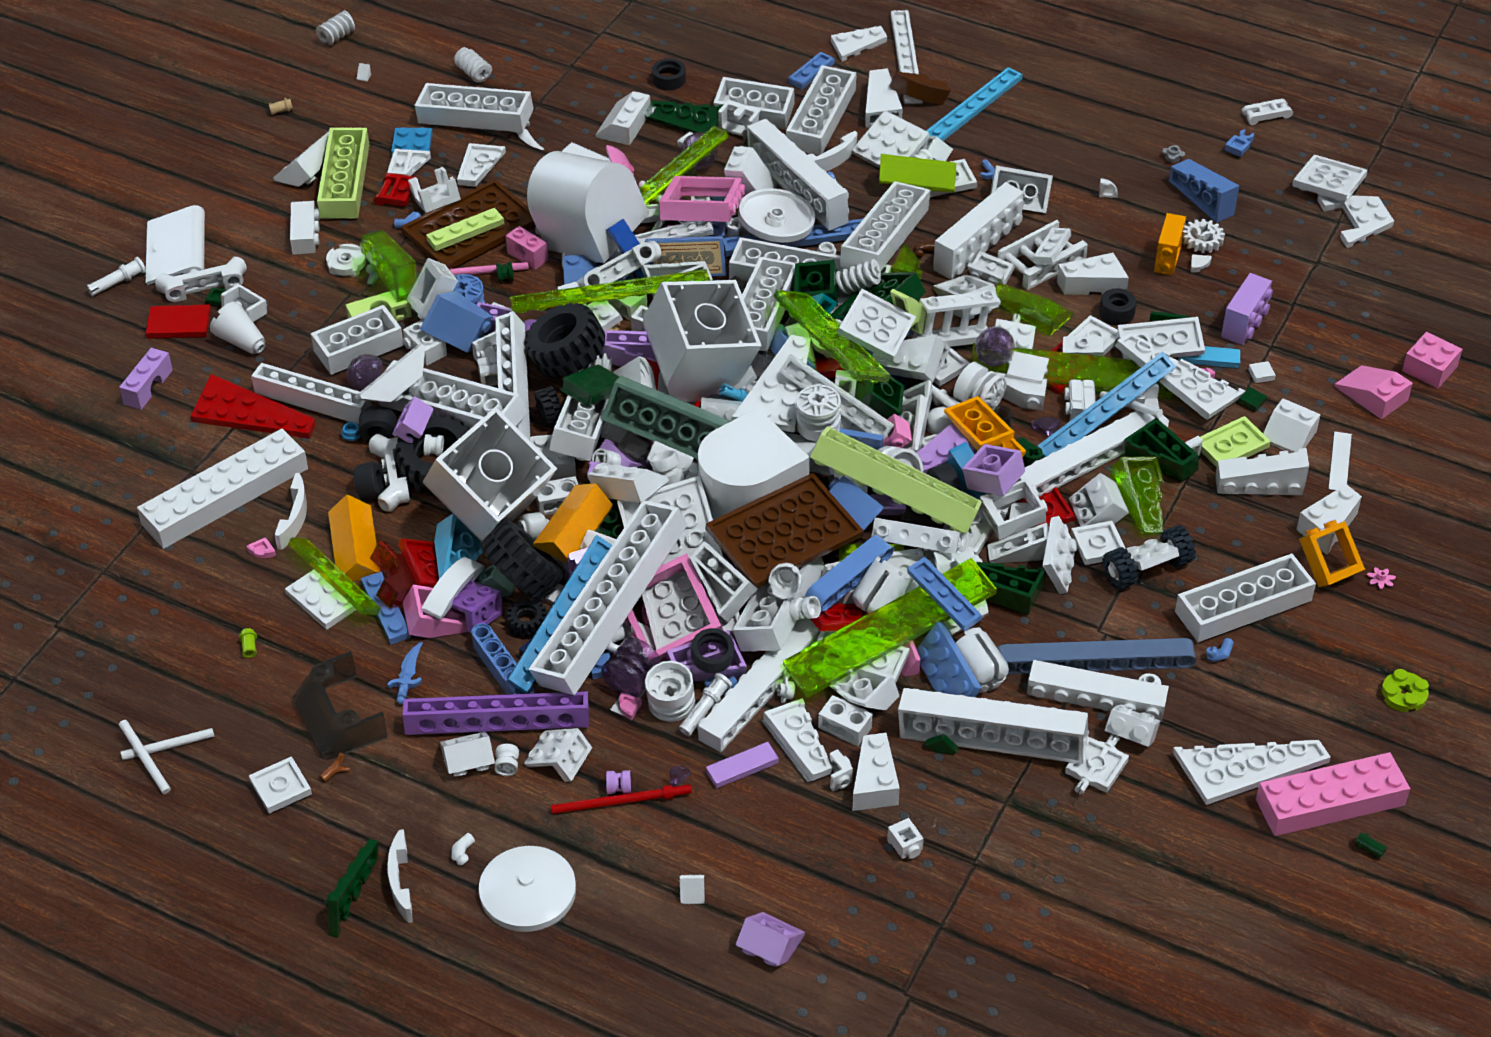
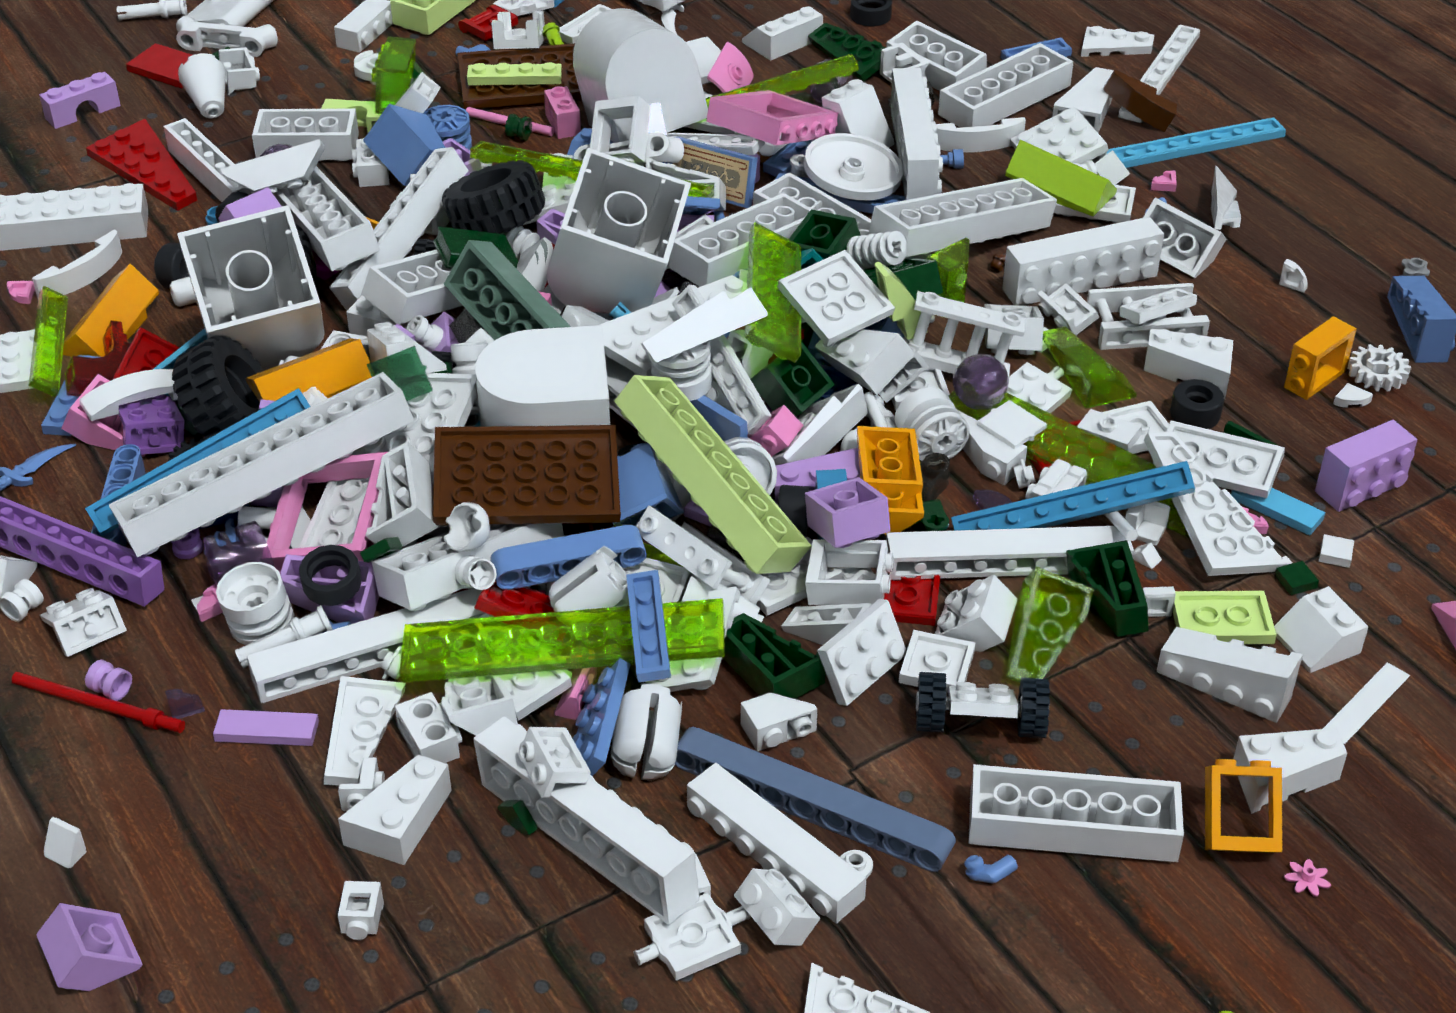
camera: 30 degrees right, 5 degrees down
(462, 186) = (551, 32): none -> lime pin
(607, 235) = (620, 108): none -> white window
(649, 490) = (405, 371): none -> clear green piece
(732, 620) = (381, 549): none -> dark green tile
(828, 379) = (705, 323): none -> white wedge
(963, 699) = (552, 758): none -> white bracket
(975, 145) = (1165, 182): none -> bright pink tile
(1028, 151) = (1223, 206): none -> white wedge
(1038, 619) = (776, 719): none -> white slope
(1054, 399) = (1024, 475): none -> white plate

